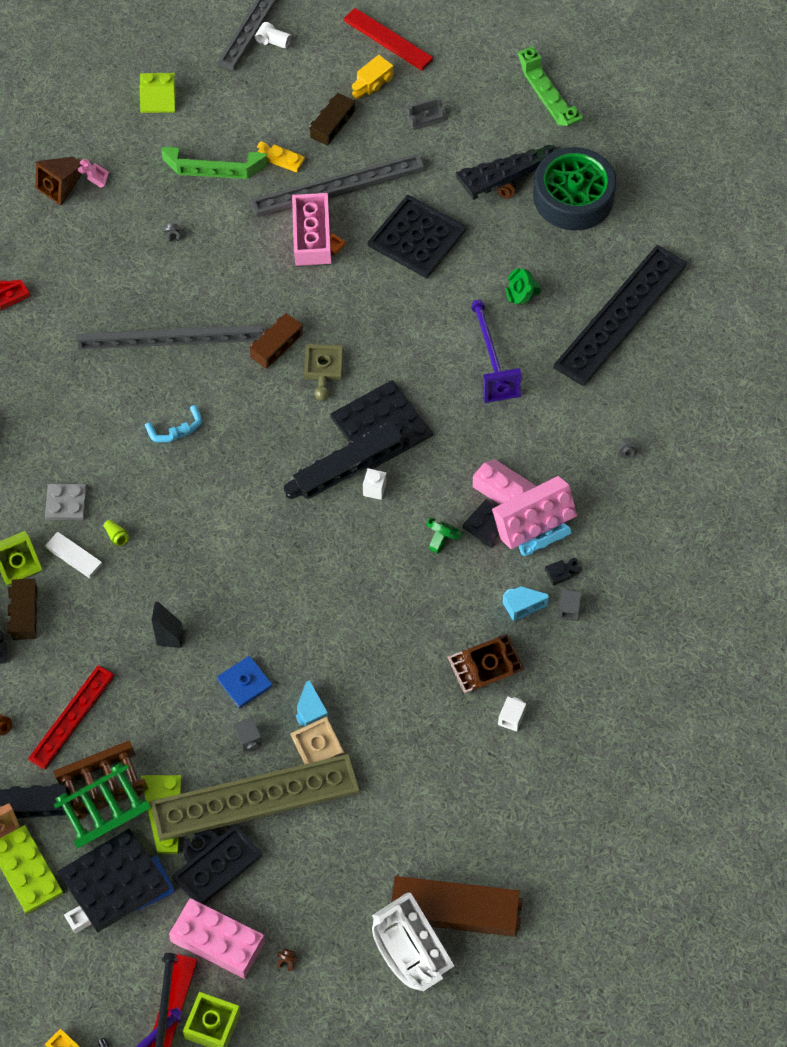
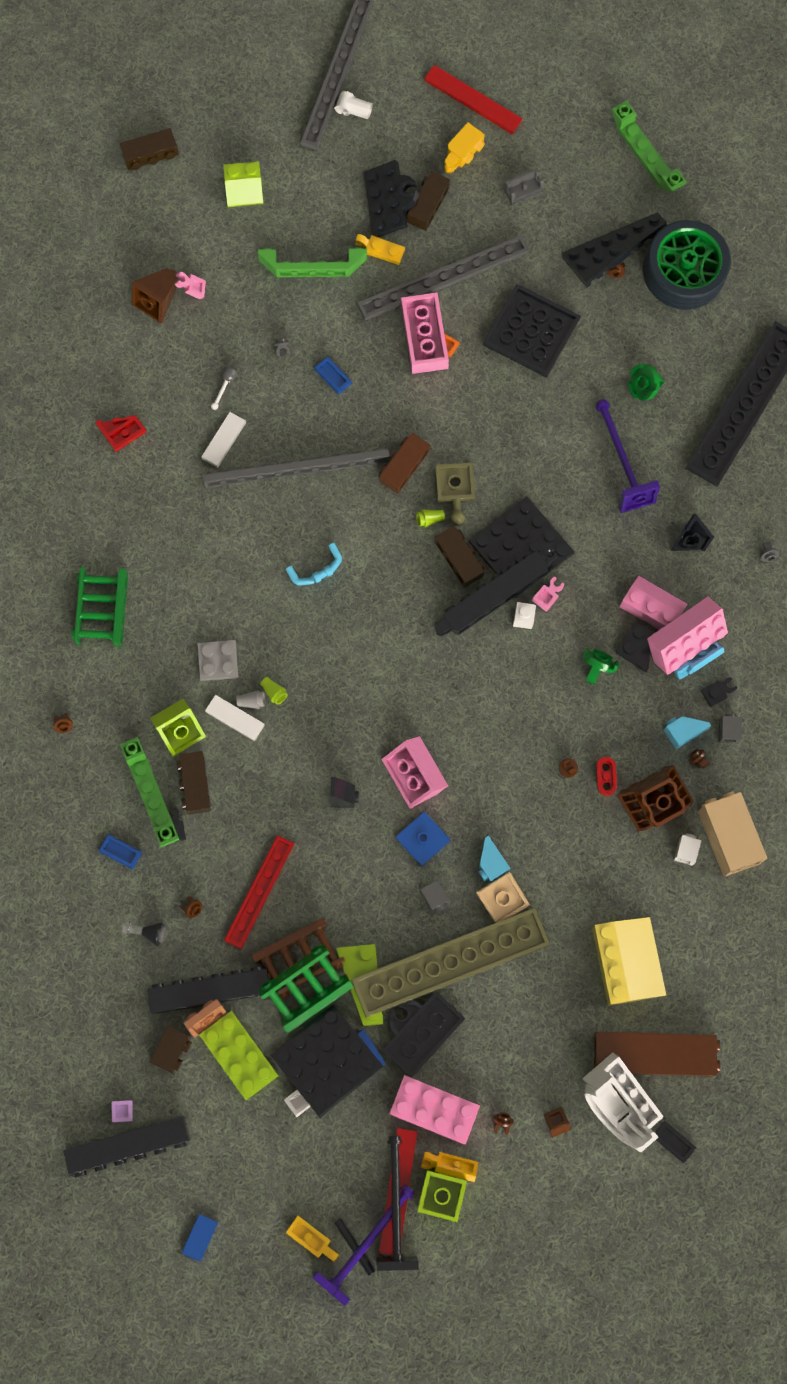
camera: 10 degrees left, 15 degrees up
(73, 58) = (149, 149): none -> dark brown brick
(93, 539) = (252, 700): none -> light grey cone
(103, 308) = (223, 439): none -> white tile
(117, 253) = (228, 375): none -> hinge
(218, 261) = (333, 375): none -> blue tile
(229, 994) = (451, 1165): none -> yellow plate
(244, 617) = (414, 772): none -> bright pink slope
(293, 390) = (429, 517): none -> lime cone
(294, 113) = (388, 198): none -> black plate
(318, 426) = (459, 556): none -> dark brown brick
(344, 965) = (557, 1122): none -> reddish brown slope
(400, 627) = (568, 768): none -> reddish brown plate
(401, 469) = (547, 596): none -> bright pink plate
(438, 639) = (606, 777): none -> red plate
(438, 814) = (628, 960): none -> light yellow slope
(464, 996) = (674, 1142): none -> black tile
(534, 630) = (697, 758): none -> reddish brown plate
(553, 426) = (694, 536): none -> black slope
(558, 700) = (732, 833): none -> tan brick

